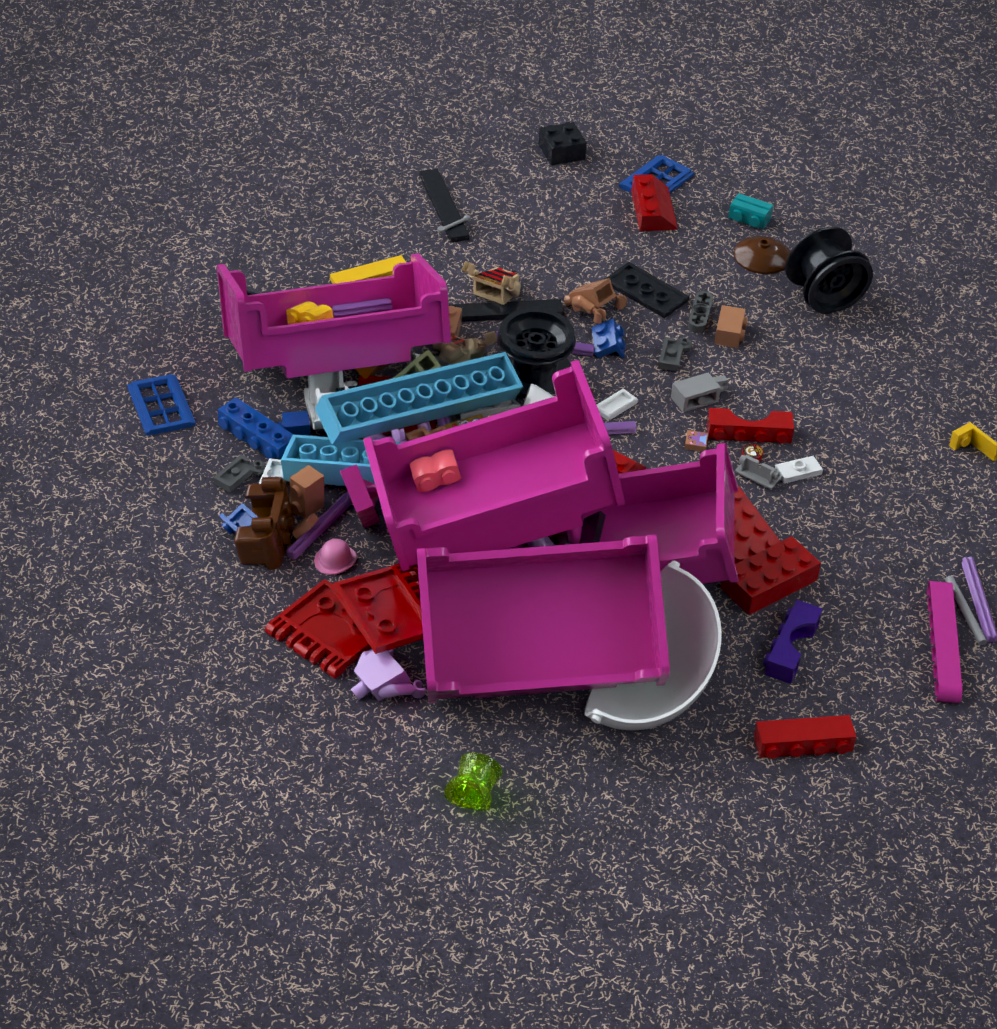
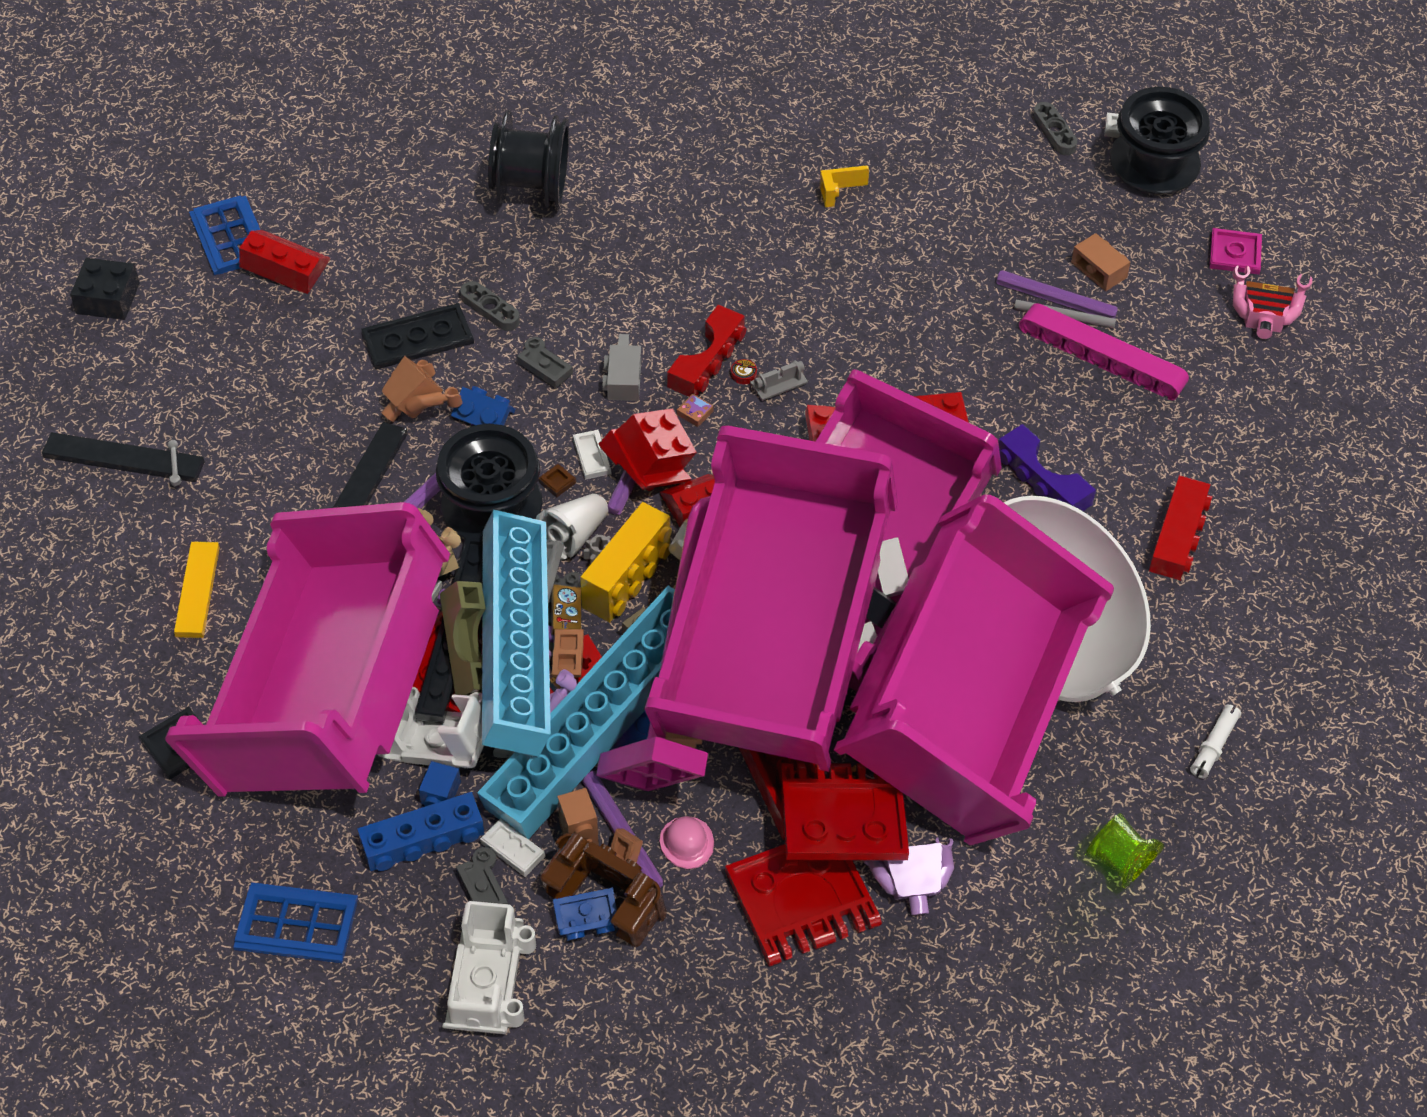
camera: 60 degrees left, 10 degrees up
(173, 495) = (487, 969): none -> white container
(308, 312) = (281, 681): yellow brick -> none
(362, 307) = (287, 621): medium lavender axle -> none
(435, 470) = (705, 662): coral brick -> none
(494, 284) = (323, 468): tan torso -> none
(616, 817) = (1211, 748): none -> white pin
(631, 419) = (651, 448): none -> red piece
(731, 326) = (537, 291): nougat brick -> none
(751, 211) = (356, 179): teal brick -> none
(761, 254) = (429, 207): reddish brown dish -> none
(799, 469) = (791, 343): white plate -> none

